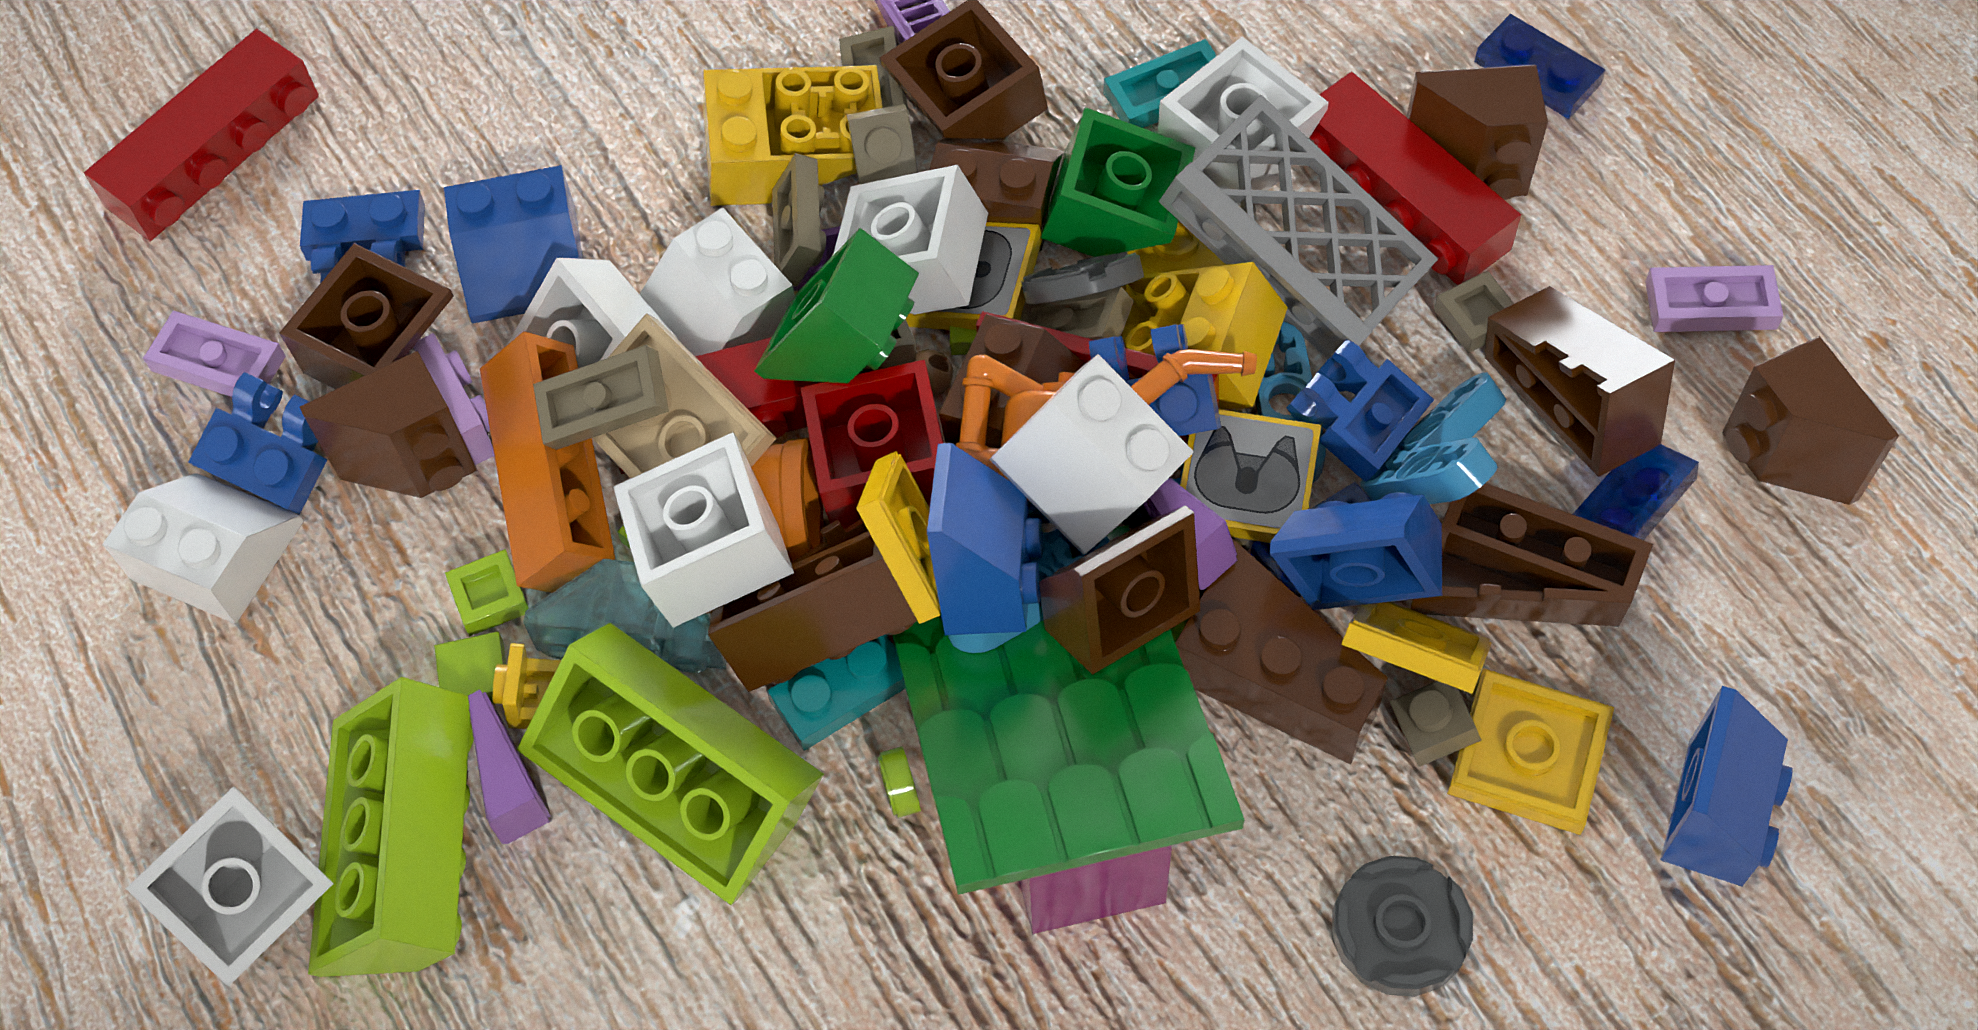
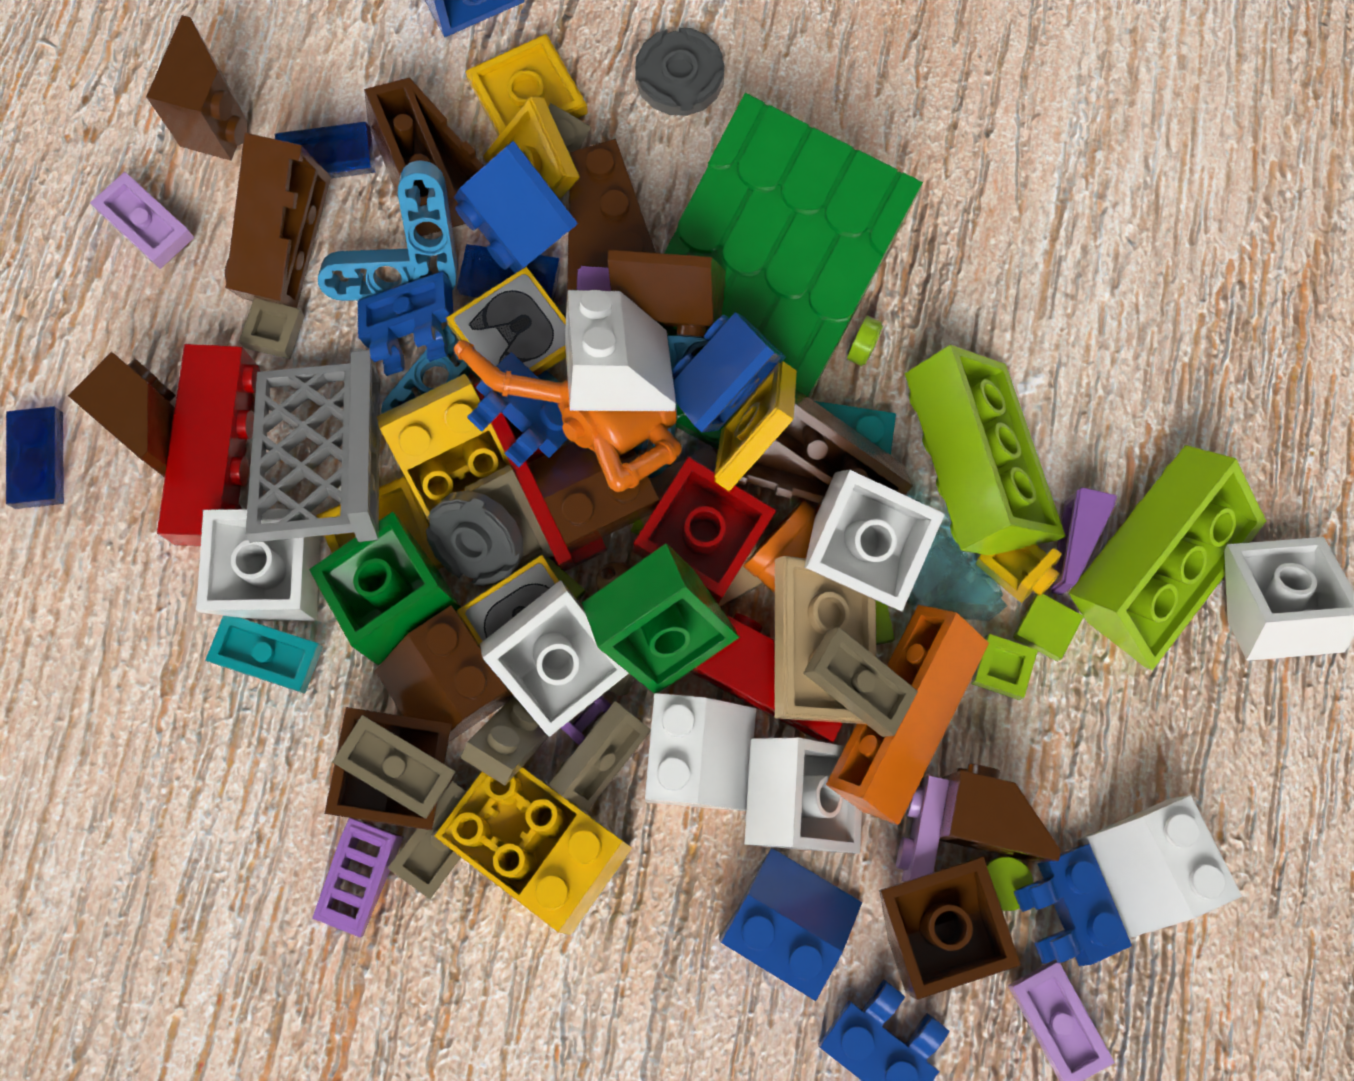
camera: 140 degrees left, 15 degrees up
(949, 53) = (394, 767): none -> dark tan plate

